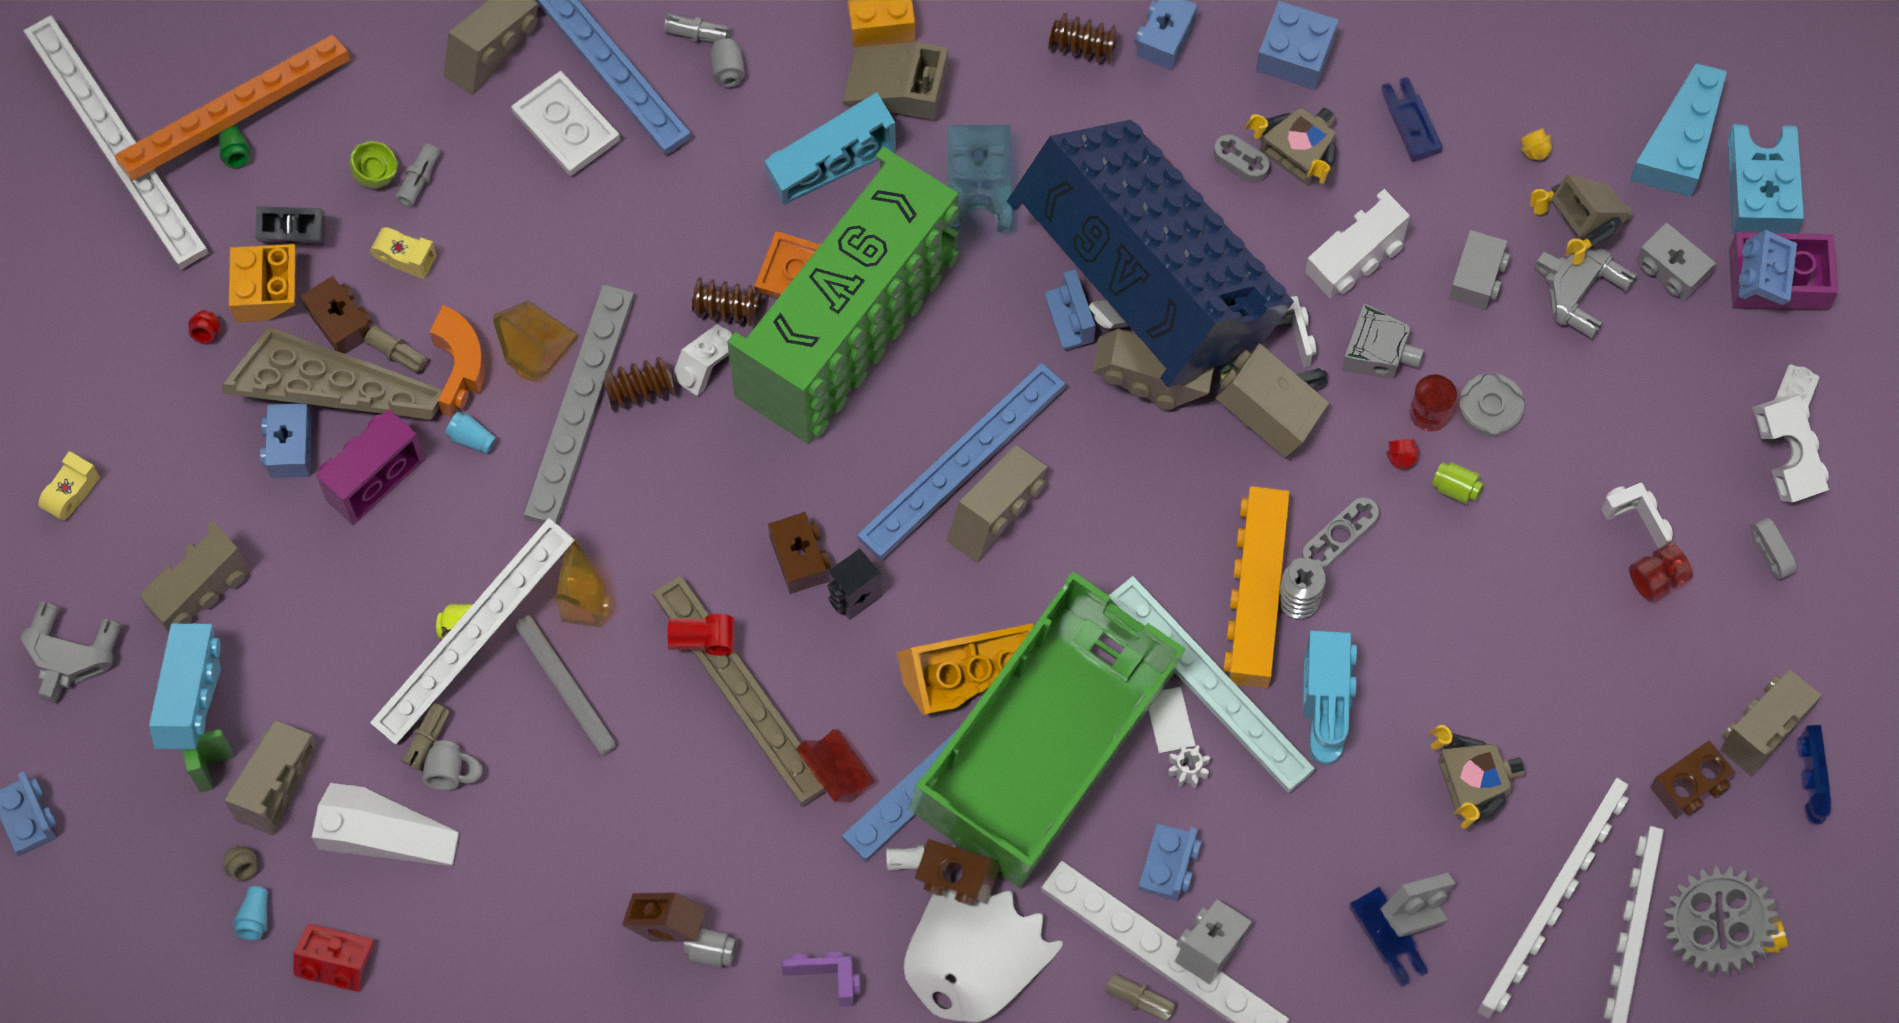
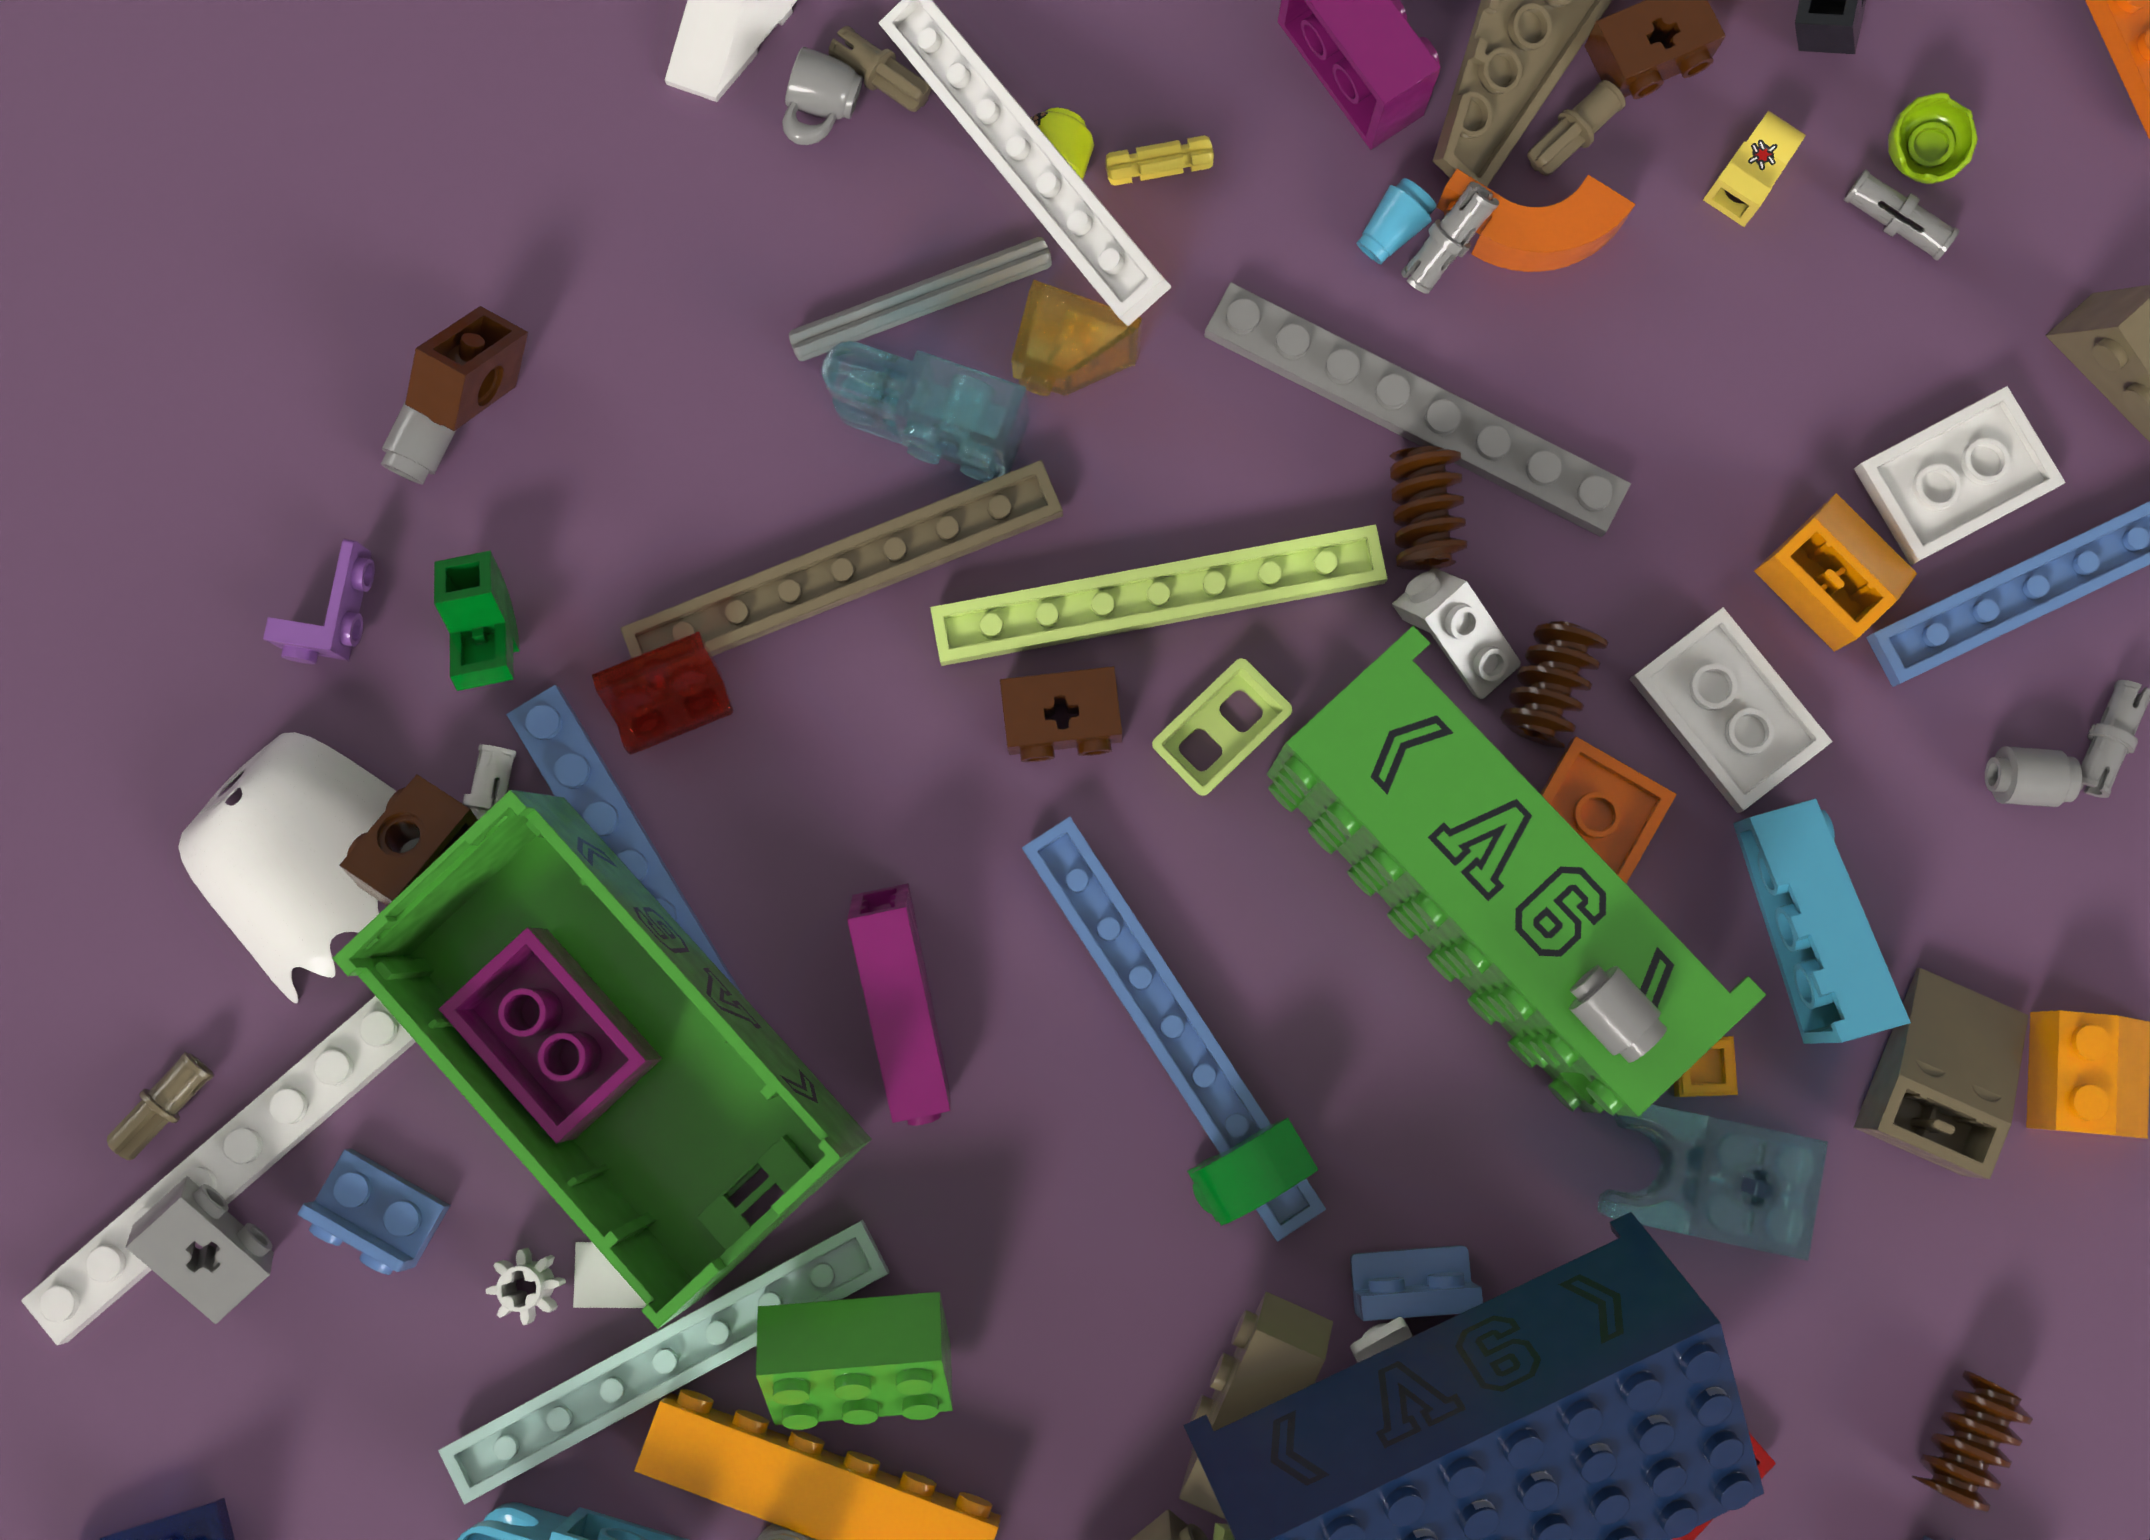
camera: 105 degrees right, 15 degrees up
(454, 570) = (1159, 160): none -> light yellow axle
(479, 398) = (1450, 237): none -> light grey pin
(532, 339) = (1550, 346): clear yellow slope -> none
(635, 172) = (1836, 573): none -> light orange slope
(637, 651) = (929, 407): none -> clear light blue brick
(711, 634) = (934, 532): red piece -> none
(719, 518) = (1158, 595): none -> yellowish green plate
(721, 214) = (1730, 710): none -> white plate
(797, 461) = (1206, 715): none -> yellowish green piece
(815, 883) = (478, 618): none -> green brick
(854, 584) = (969, 786): black brick -> none
(909, 207) = (1617, 1012): none -> light grey brick
(954, 670) = (793, 930): light orange wedge -> none
(980, 600) = (899, 1004): none -> magenta slope
(996, 502) = (1076, 1072): dark tan wedge -> none
(1033, 397) = (1252, 1172): none -> green brick
(1044, 769) = (550, 1034): none -> magenta brick
(1181, 573) = (854, 1360): none -> bright green brick

